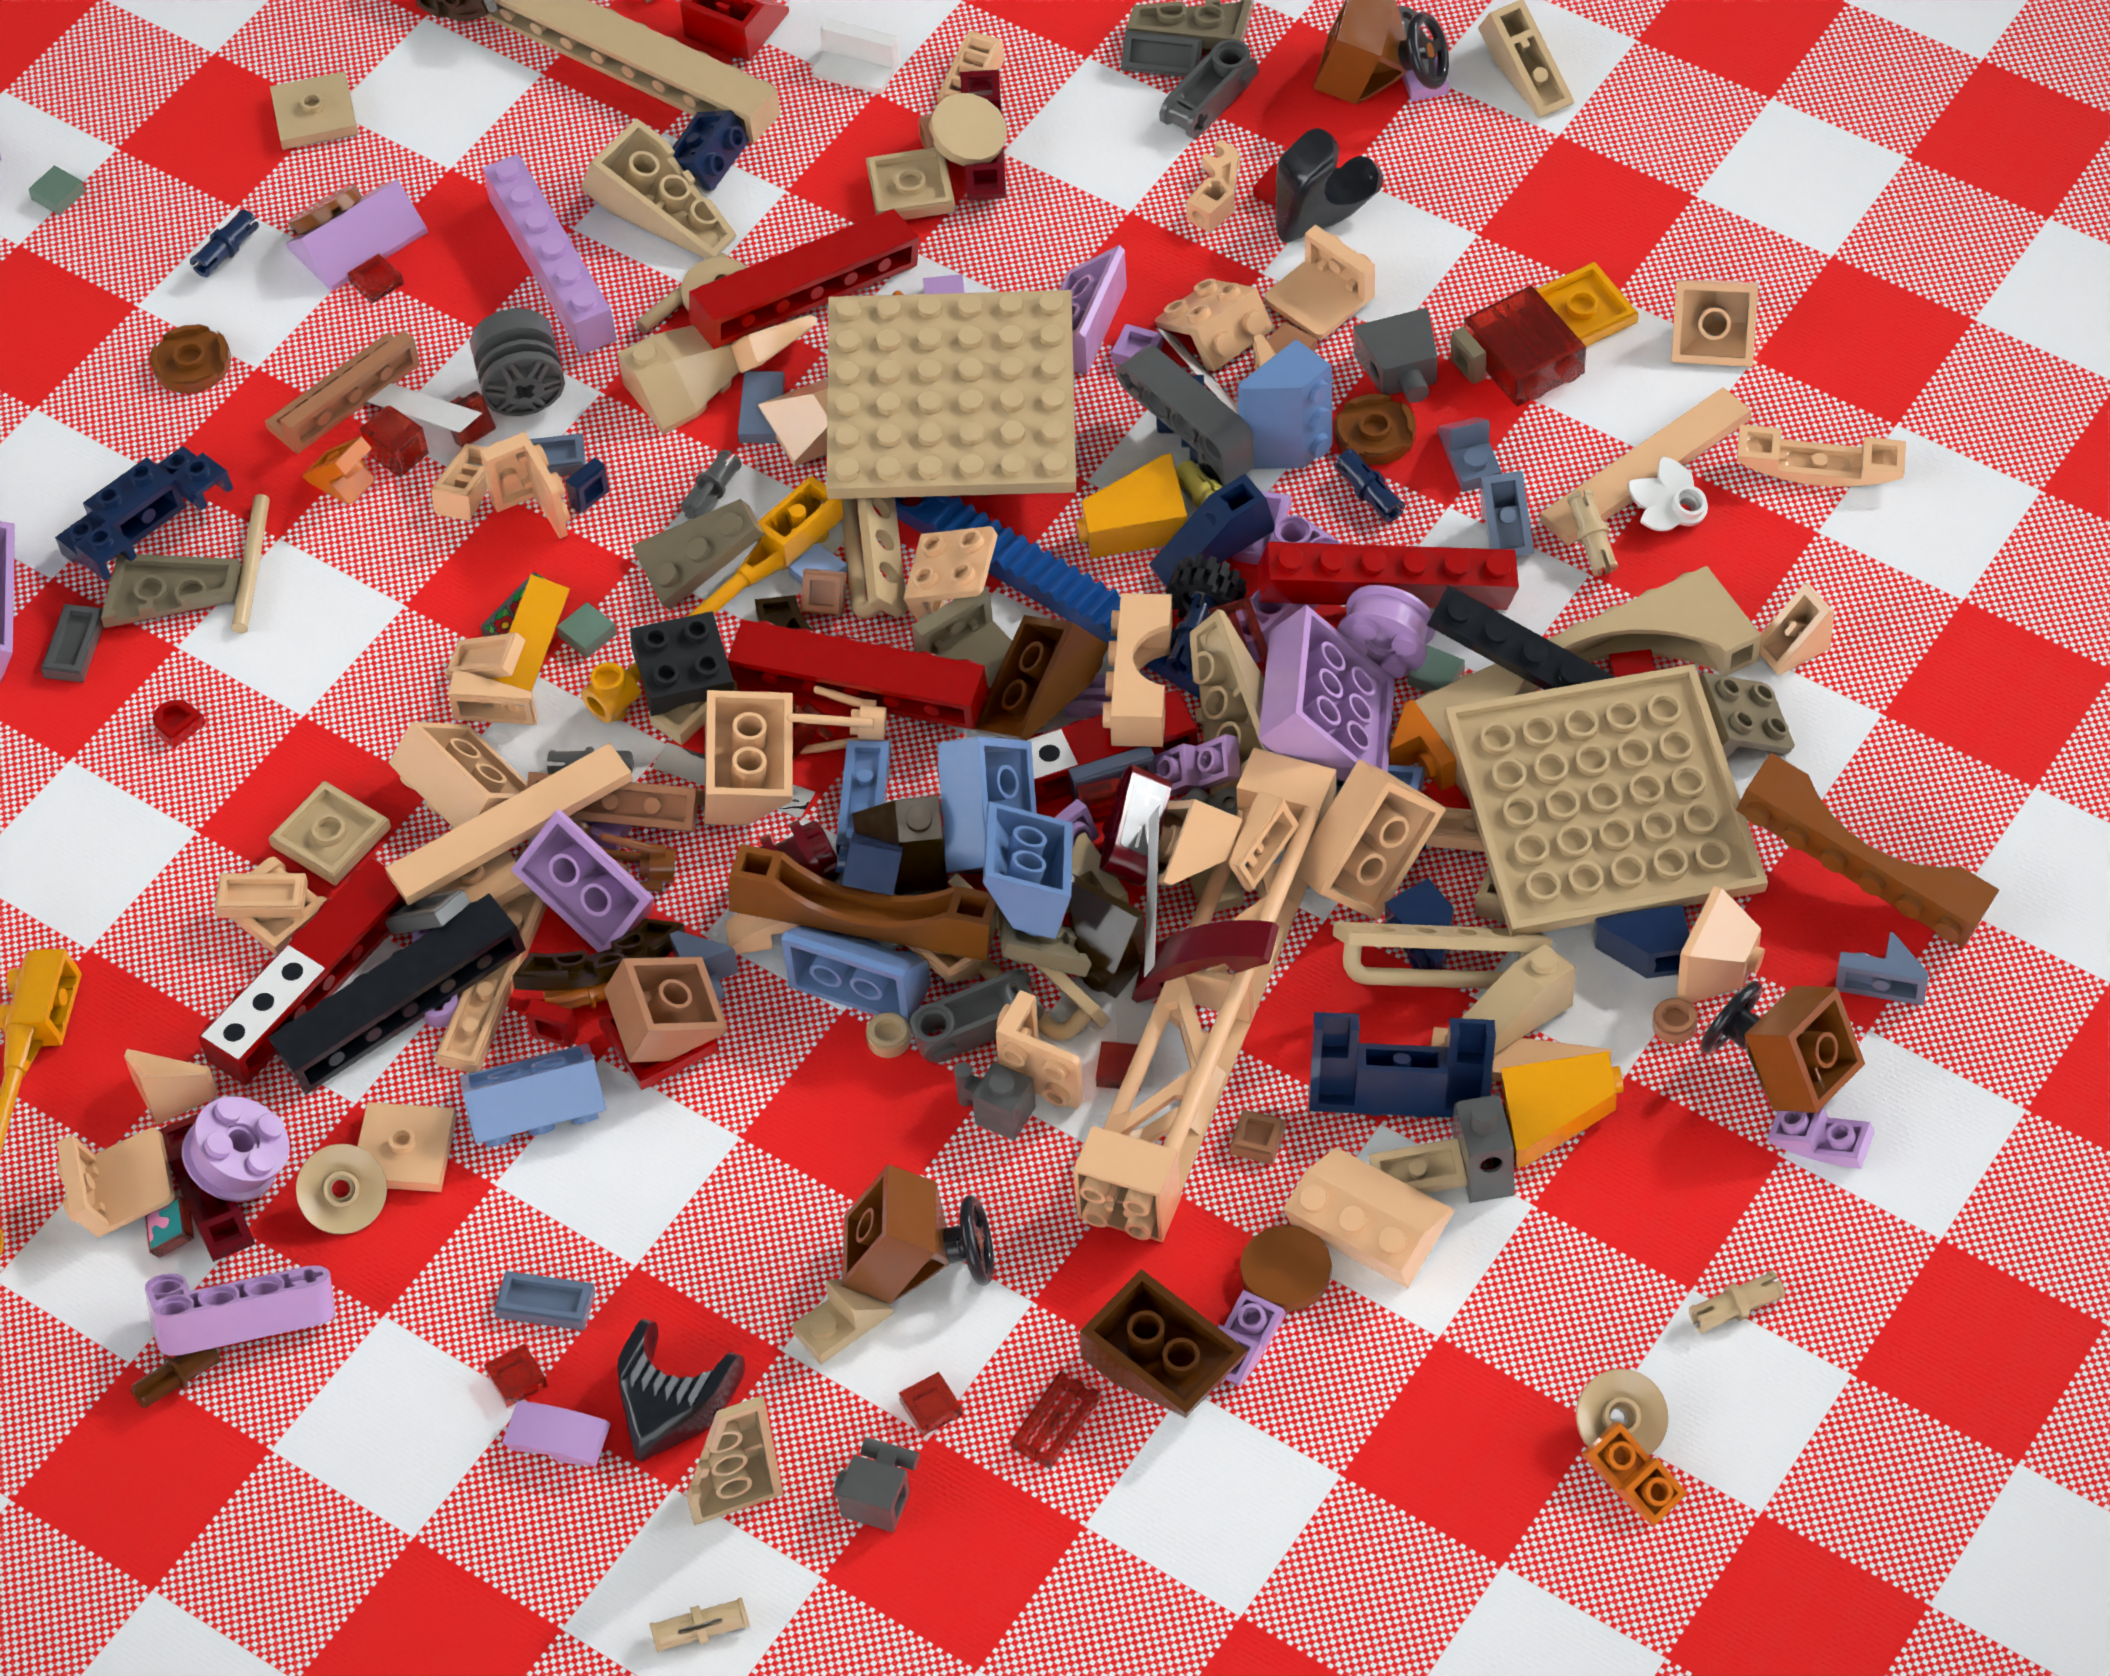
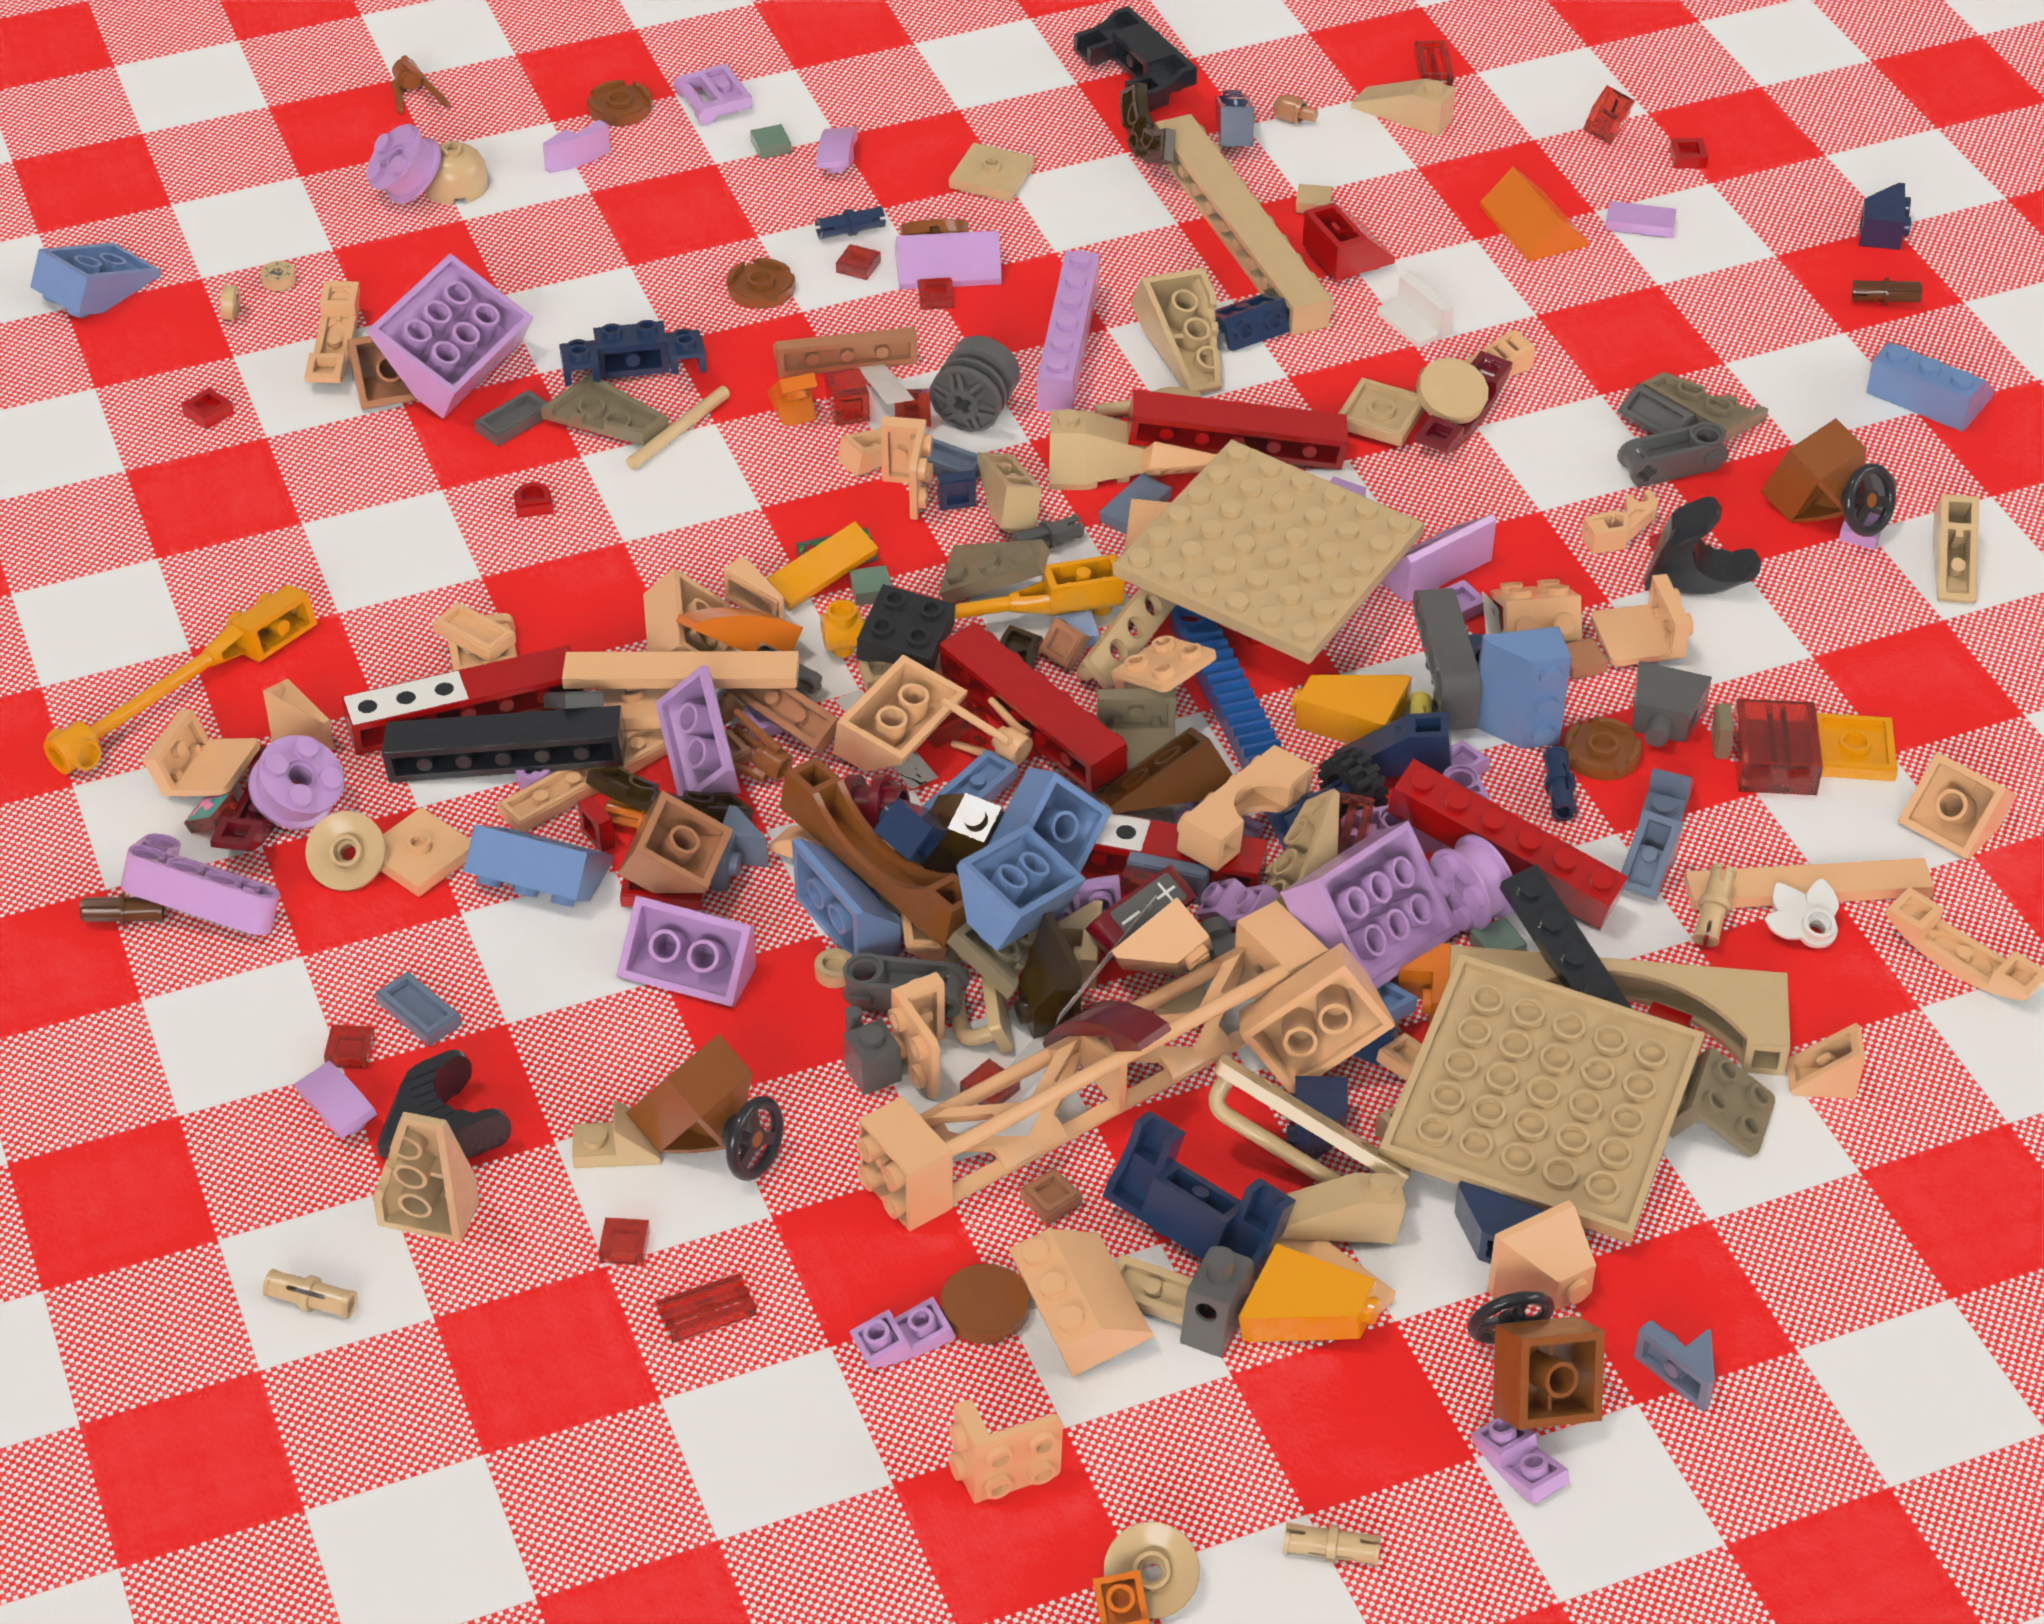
camera: 30 degrees right, 10 degrees down
(138, 164) = (836, 149): none -> lavender slope
(267, 283) = (858, 262): none -> clear red tile
(329, 832) = (565, 619): tan plate -> none
(487, 656) = (777, 560): light nougat tile -> none
(525, 746) = (743, 628): none -> orange slope
(641, 459) = (1009, 491): none -> tan slope
(751, 1100) = (688, 951): none -> lavender slope
(876, 1489) = (523, 1275): dark grey brick -> none
(1158, 1346) = (822, 1291): reddish brown slope -> none
(1262, 838) = (1235, 971): light nougat slope -> none
(1420, 1410) = (1005, 1459): none -> light nougat bracket
(1675, 1020) = (1467, 1298): nougat tile -> none
(1939, 897) = (1784, 1333): dark orange arch -> none

